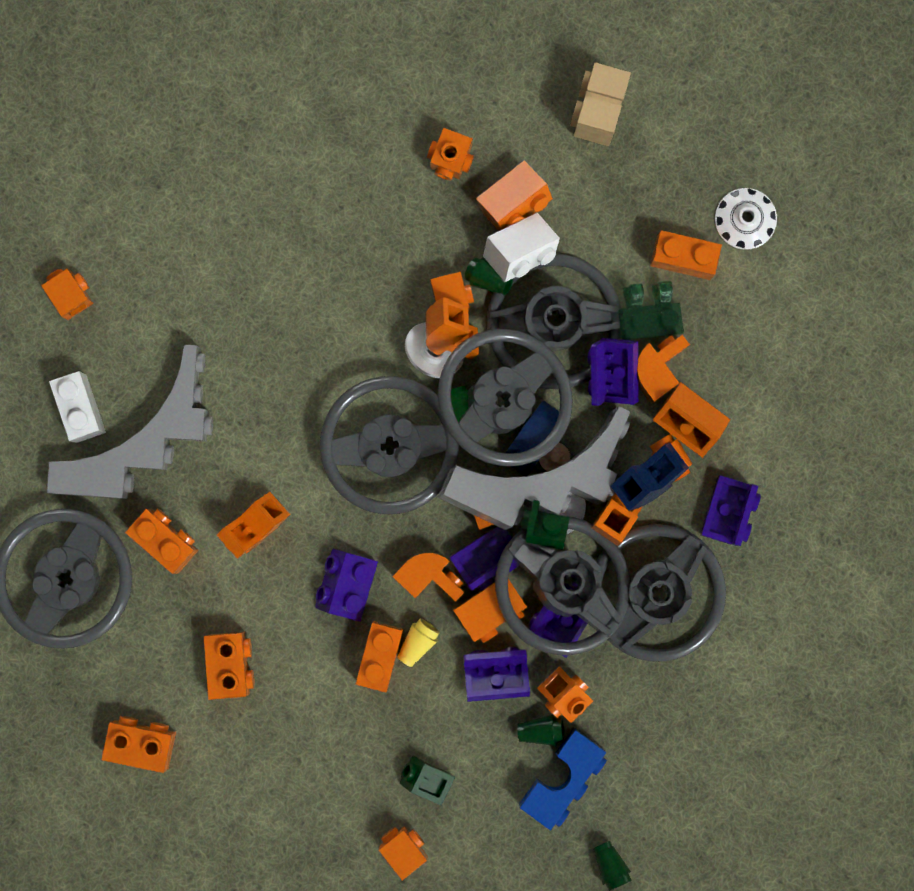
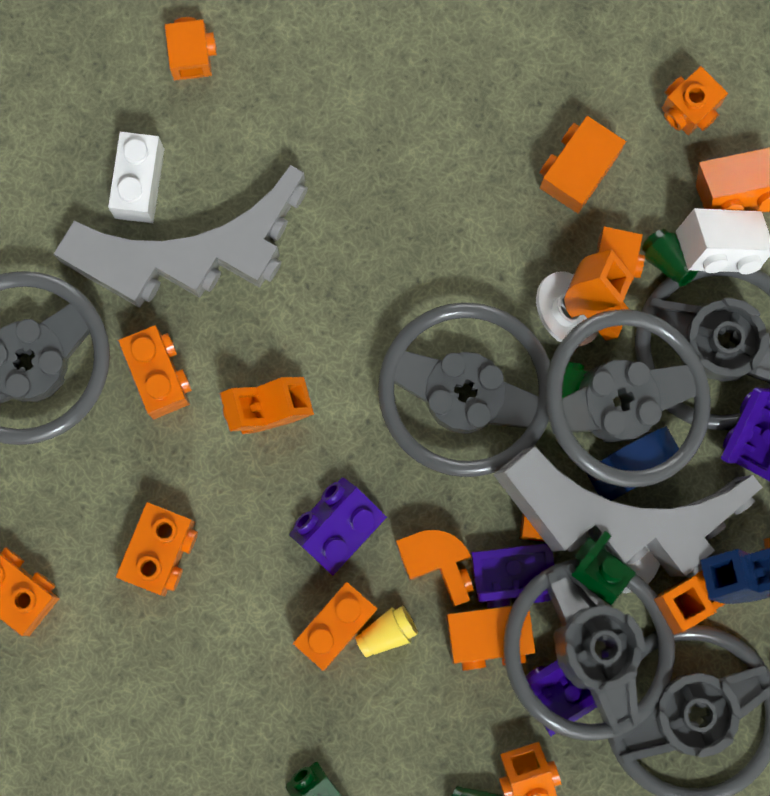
camera: 25 degrees right, 5 degrees down
(392, 240) = (581, 164): none -> orange brick
(496, 674) = (460, 715): dark purple bracket -> none
(556, 457) = (649, 497): light nougat tile -> none

